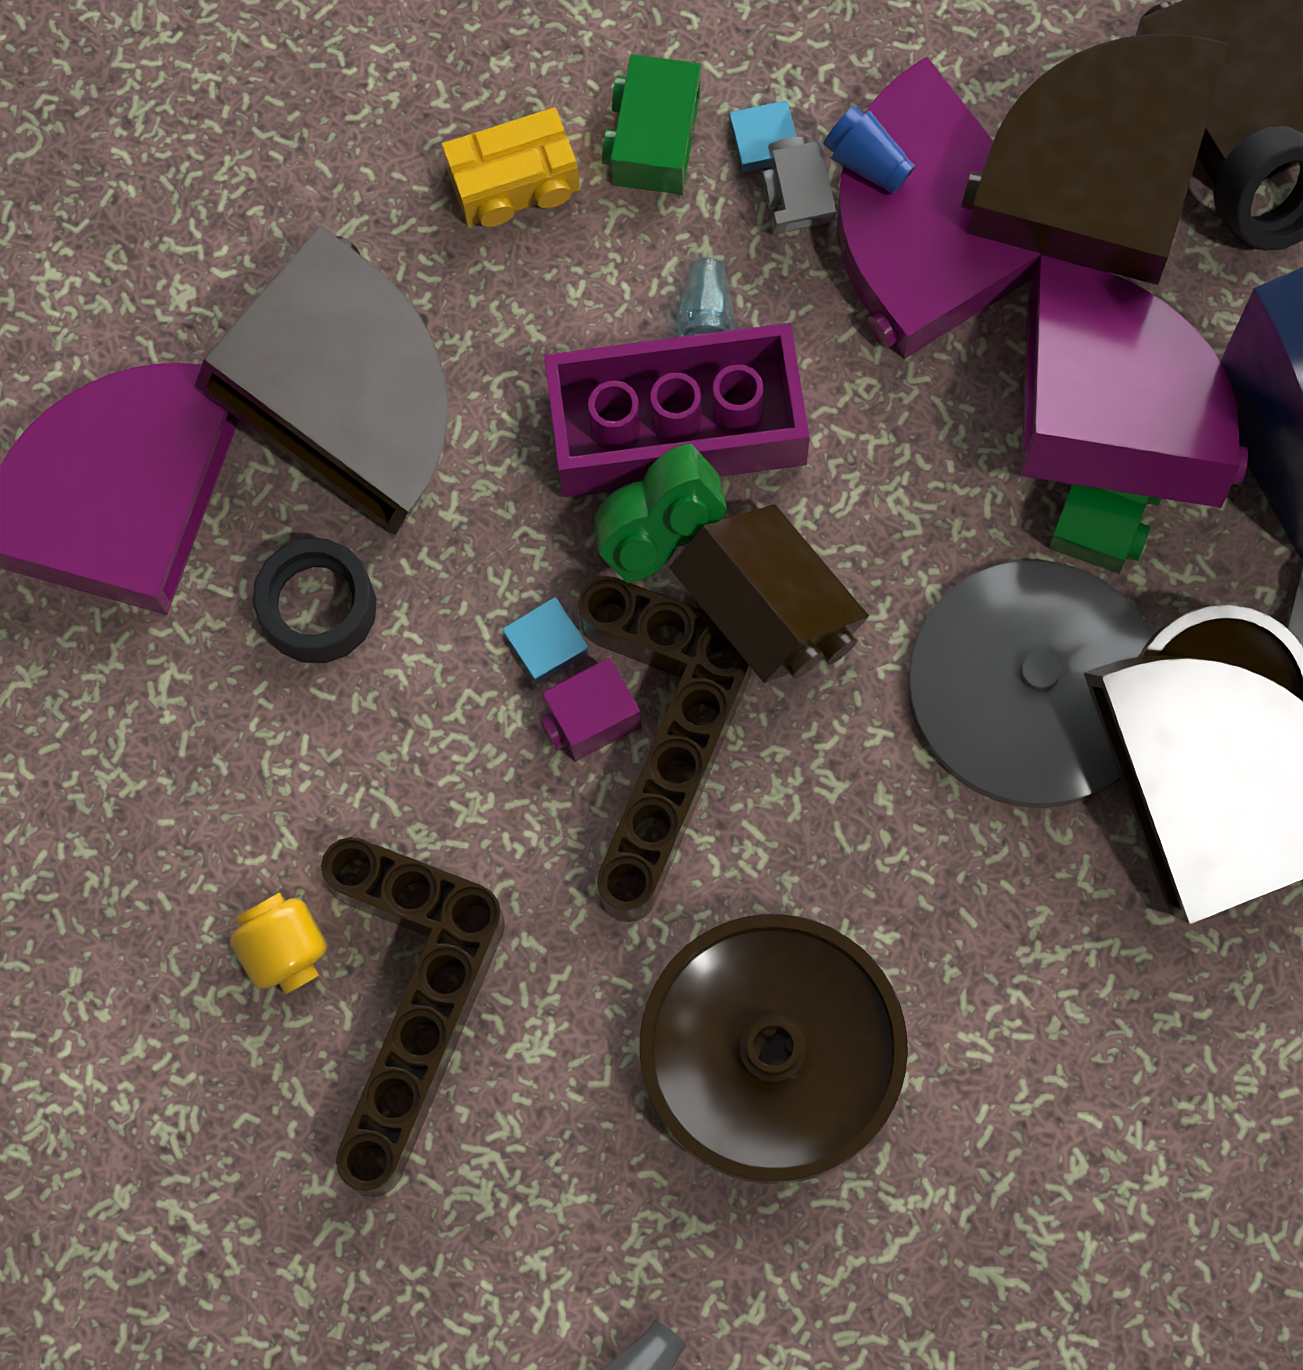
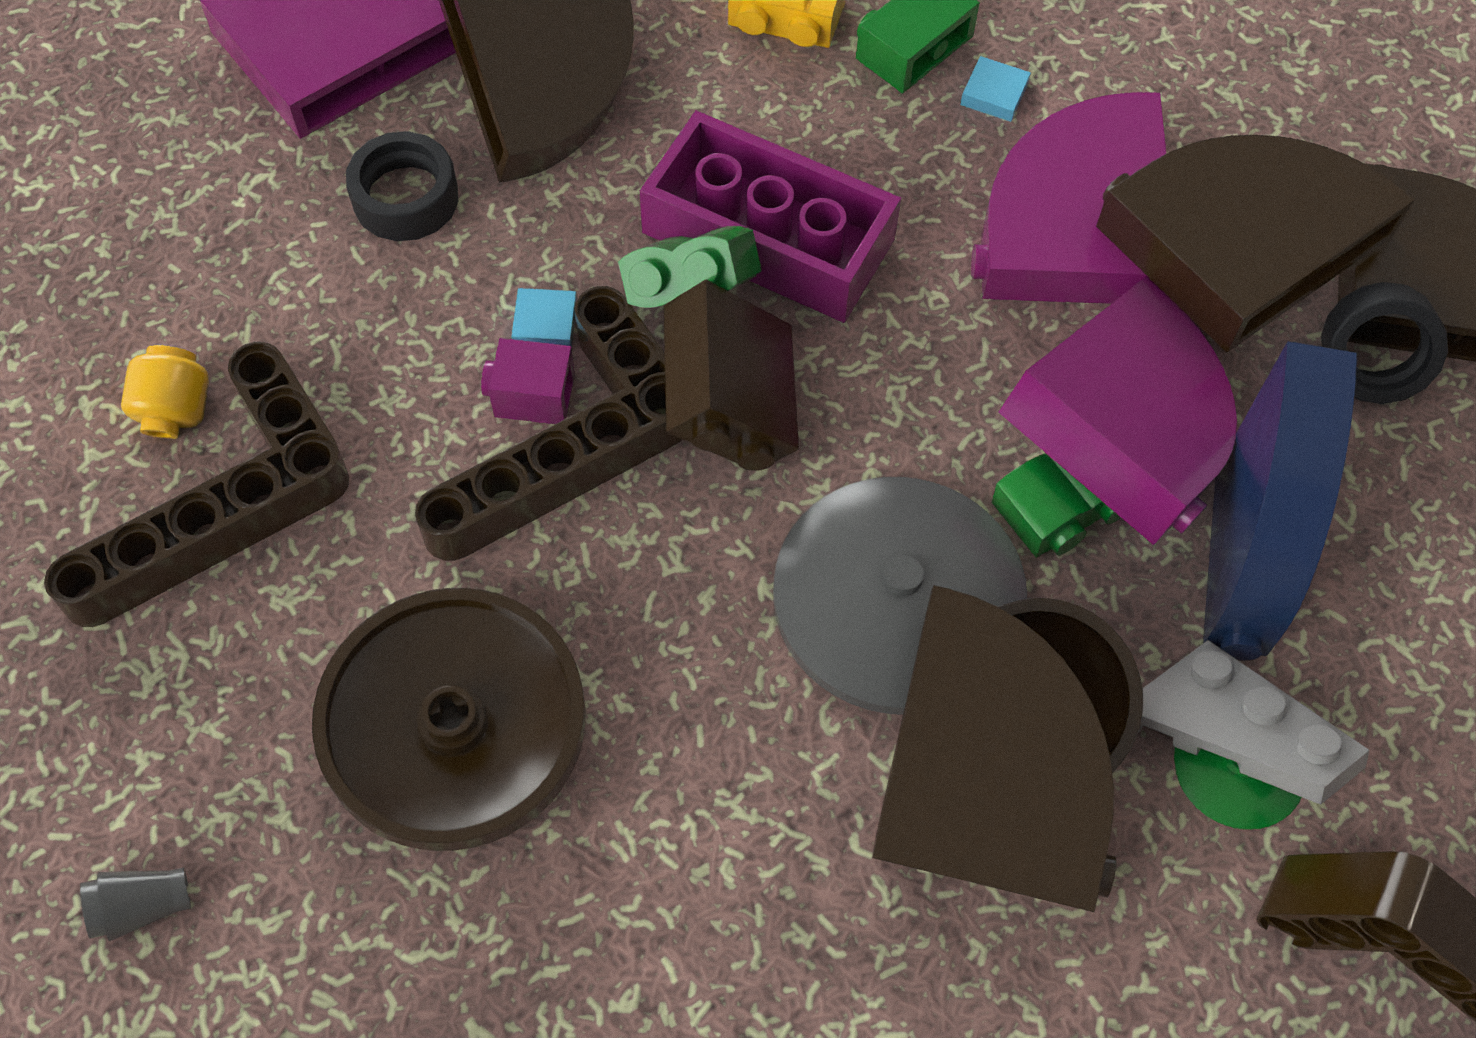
camera: 30 degrees right, 10 degrees down
(706, 300) = (863, 158): clear light blue cone -> none
(797, 185) = (988, 126): light grey brick -> none
(868, 150) = (1058, 117): blue cone -> none

